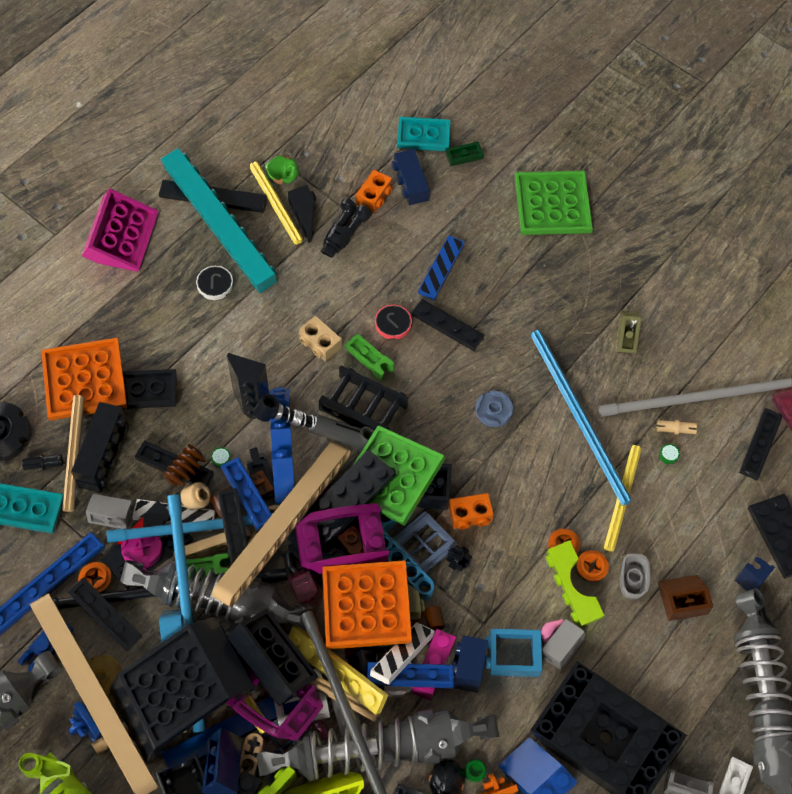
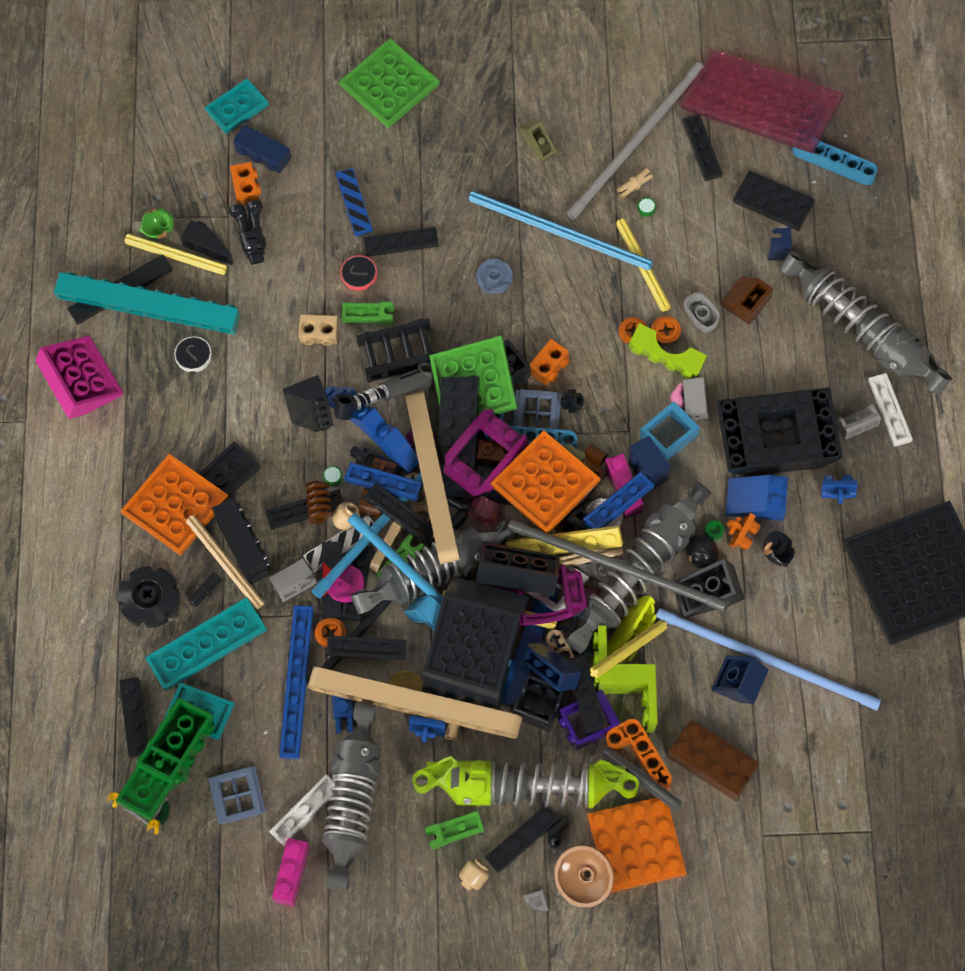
camera: 35 degrees left, 5 degrees up
(402, 654) = (601, 495): white tile -> none
(464, 153) = (284, 97): dark green plate -> none

